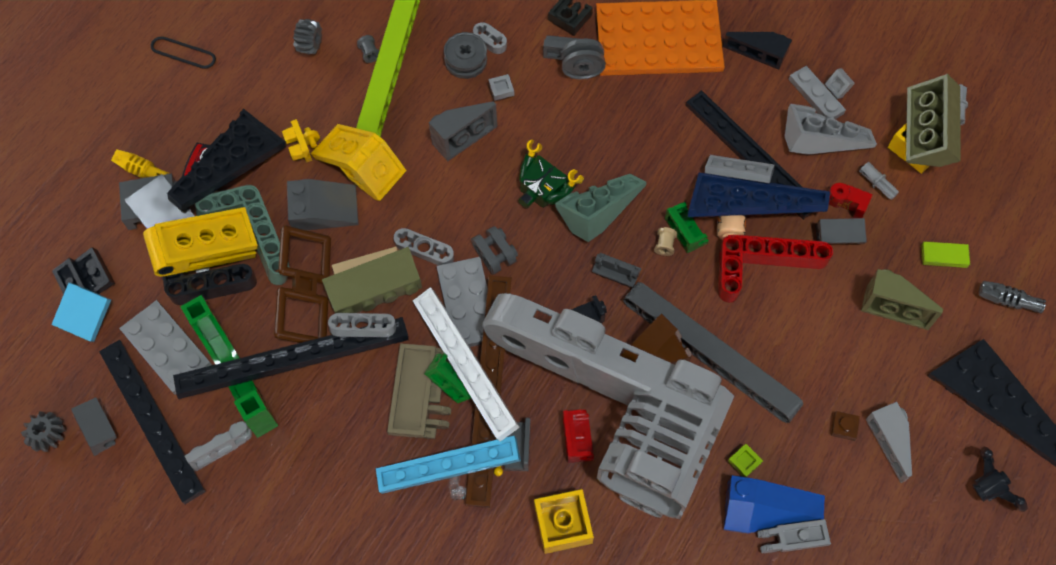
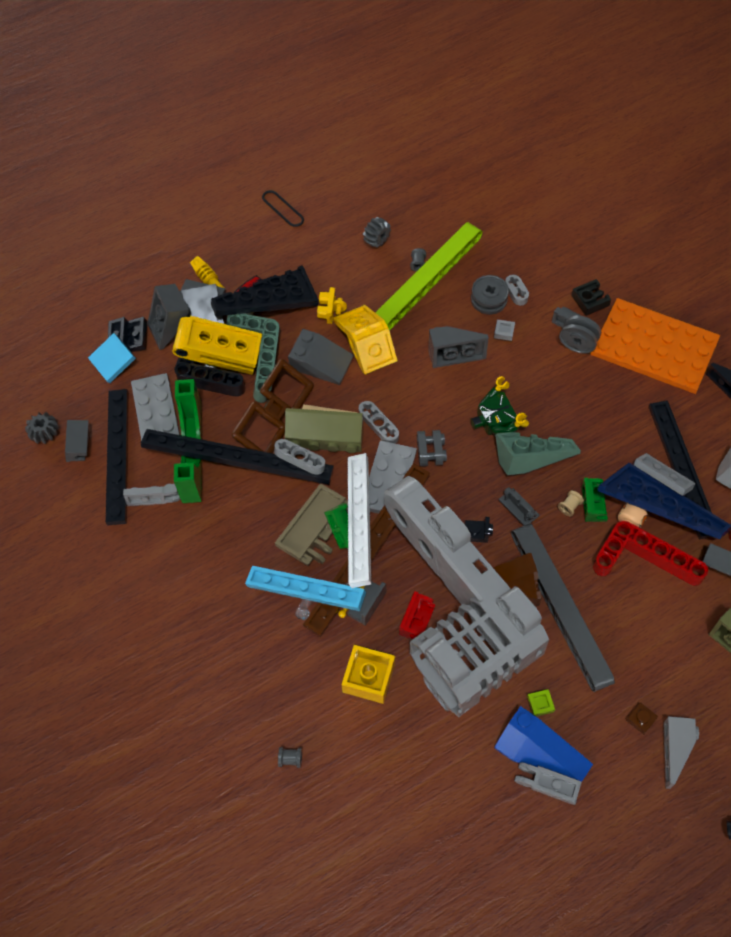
camera: 30 degrees right, 5 degrees down
(121, 233) = (165, 313): none -> dark grey slope

